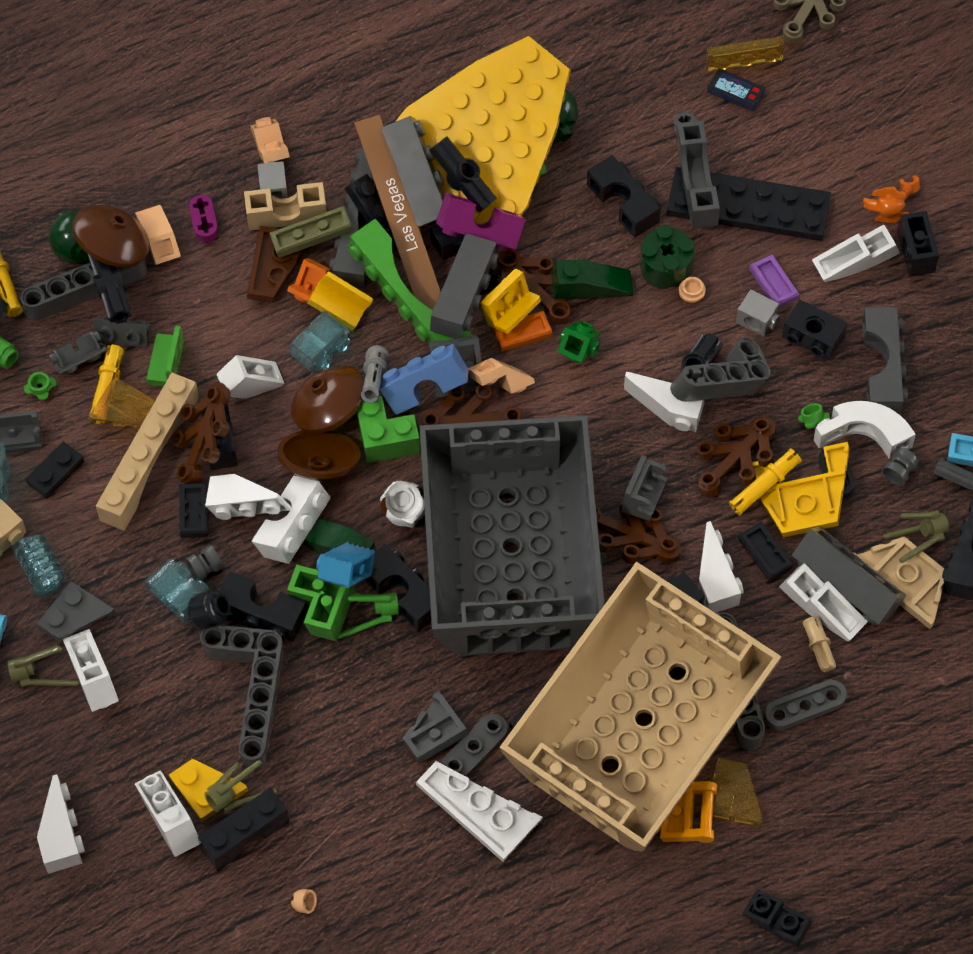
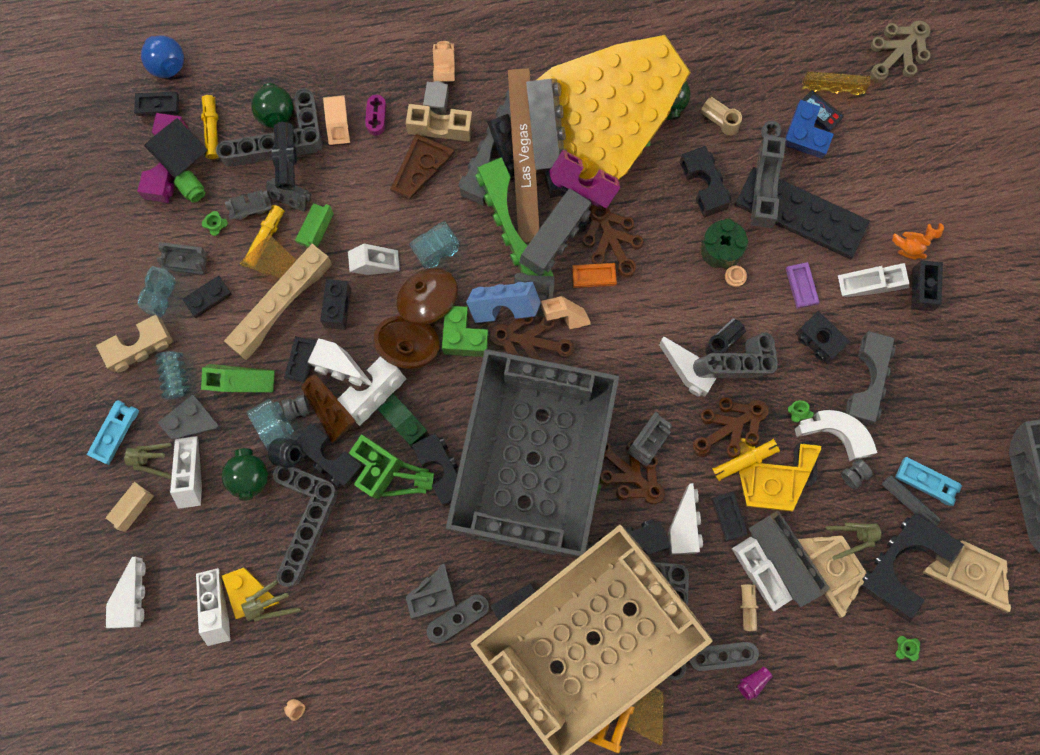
camera: 15 degrees right, 15 degrees up
(29, 728) = (129, 507): none -> tan panel
(111, 235) = (289, 122): reddish brown dish -> none
(123, 548) = (236, 379): none -> bright green slope
(165, 649) = (244, 474): none -> dark green brick
(204, 430) = (335, 279): reddish brown plant -> none
(226, 839) = (263, 639): black arch -> none
(245, 552) = (328, 409): none -> reddish brown wing
(307, 279) = (440, 191): orange bracket -> none
(311, 231) = (452, 150): olive tile -> none
(339, 300) = (458, 215): yellow panel -> none
(346, 565) = (396, 449): dark azure brick -> none
(374, 368) = (459, 301): light grey pin -> none
(403, 503) = (458, 400): white hair -> none
(463, 174) = (586, 147): black piece -> none
(487, 816) = (448, 676): white wing -> none
(509, 302) = (589, 253): yellow bracket -> none
(571, 342) = (634, 299): green brick -> none
(589, 280) = (658, 248): dark green slope -> none
(630, 121) = (721, 114): none -> tan piece
(725, 118) = (803, 134): none -> blue brick
(758, 313) = (782, 311): light grey brick -> none
(849, 727) = (754, 683): none -> magenta cone

